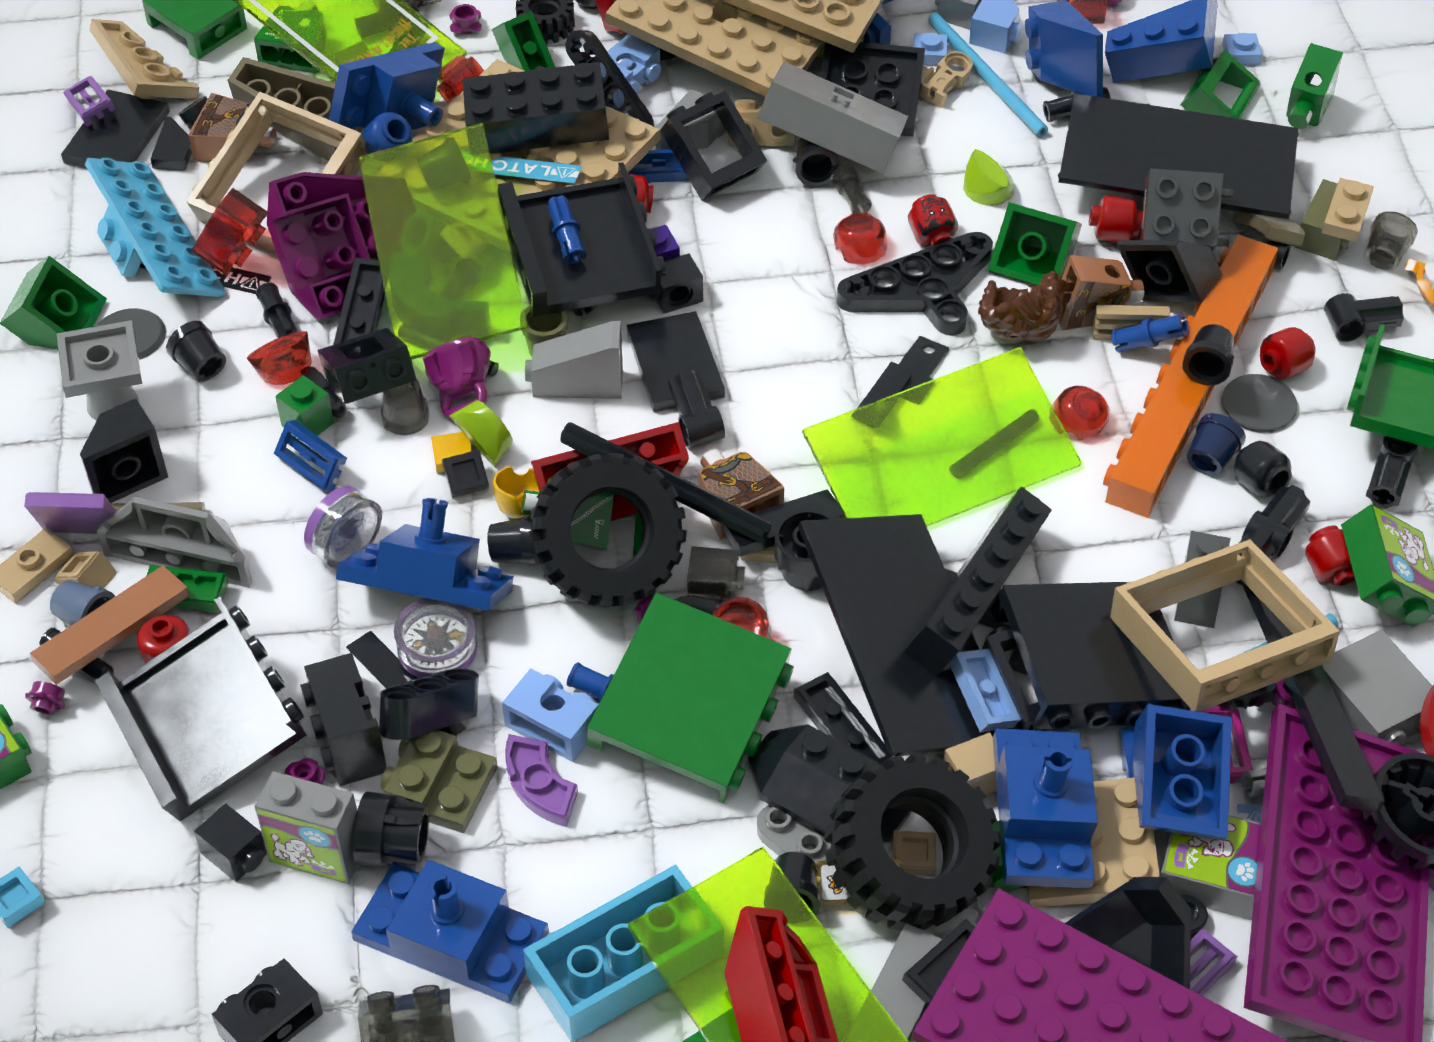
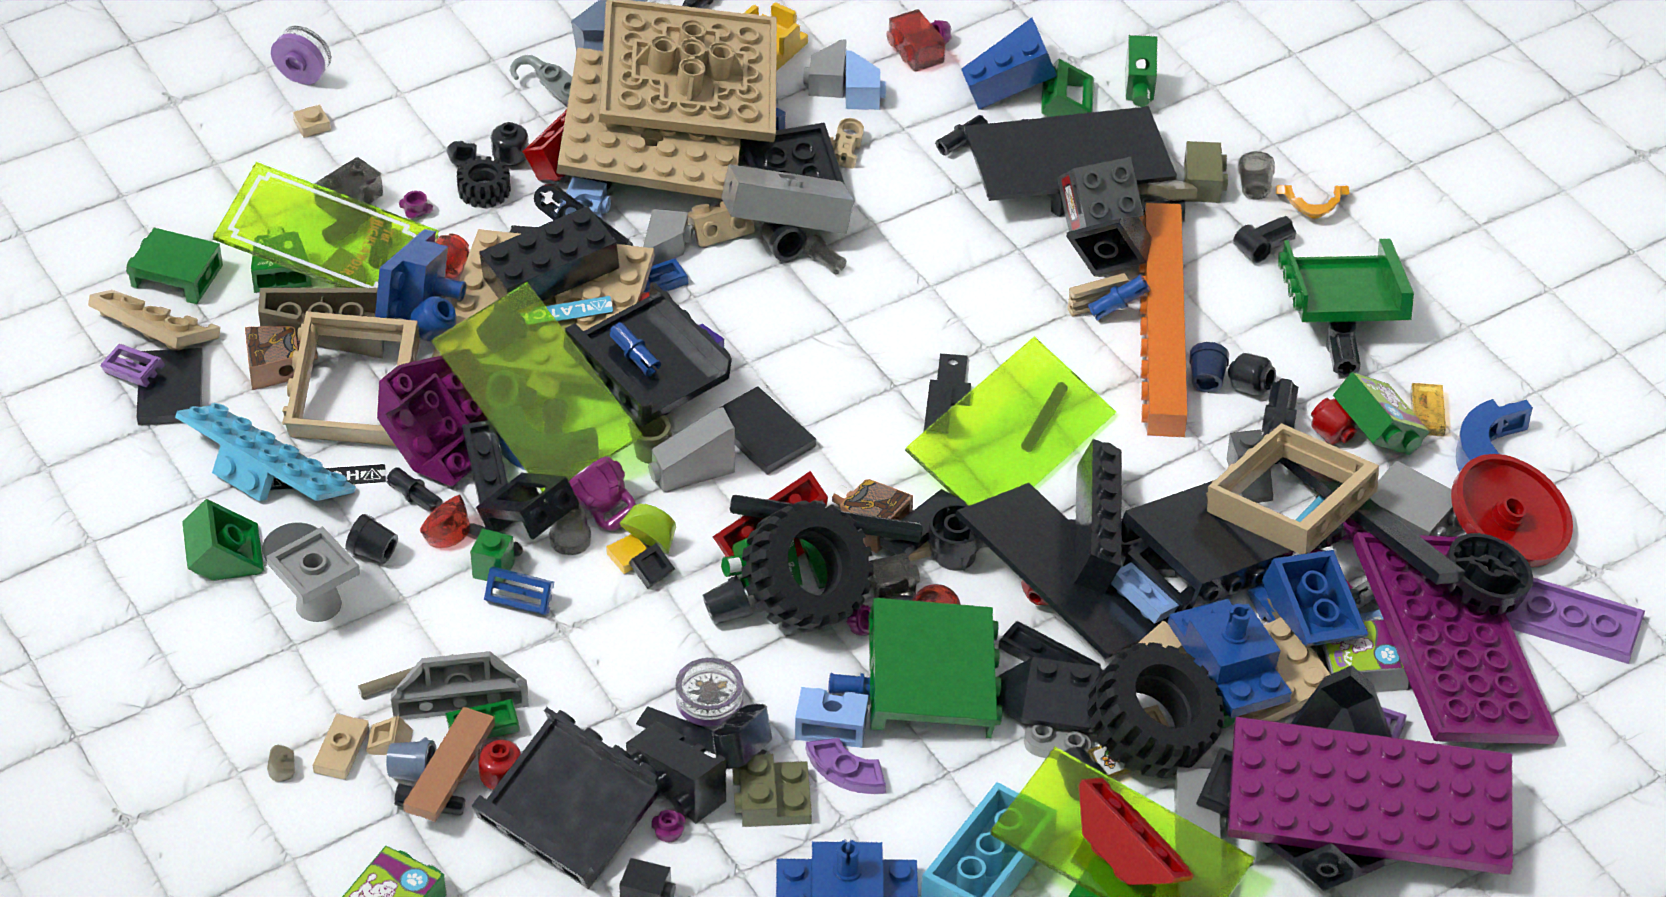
camera: 25 degrees left, 5 degrees down
(45, 697) = (425, 836): magenta plate -> none
(69, 511) = (362, 691): medium lavender tile -> none
(122, 452) = (375, 631): black slope -> none
(172, 147) = (229, 383): black tile -> none
(191, 112) = (232, 346): black tile -> none
(230, 231) = (344, 435): clear red brick -> none
(308, 826) = (710, 850): brick -> none
(342, 525) = (588, 633): clear piece -> none
(389, 831) = (766, 835): black piece -> none
(428, 564) = (674, 637): blue brick -> none
(509, 490) = (705, 566): yellow hair -> none
(523, 43) = (483, 210): green slope -> none
(681, 285) = (741, 369): black brick -> none
(688, 156) = (685, 263): black window -> none
(697, 417) = (805, 458): black piece -> none
(860, 238) = (853, 290): clear red hair -> none
(908, 290) = (912, 320): black beam -> none
(932, 220) = (904, 260): red head -> none
(934, 45) = (820, 115): light blue plate -> none
(987, 180) = (925, 216): lime piece -> none
(990, 76) = (877, 130): medium azure piece -> none
(1023, 313) = (1018, 309): reddish brown hair -> none
(1033, 244) = (993, 257): green slope -> none
(1064, 48) = (939, 91): blue slope -> none
(1082, 411) = (1097, 371): clear red hair -> none
(1093, 283) = (1055, 275): nougat torso -> none
(1115, 219) = (1044, 218): red head -> none
(1210, 355) = (1179, 300): black piece -> none
(1243, 47) = (1066, 51): light blue plate -> none
(1259, 402) = (1221, 325): dark grey piece -> none
(1287, 353) = (1225, 283): red head -> none
(1348, 209) = (1218, 159): tan plate -> none

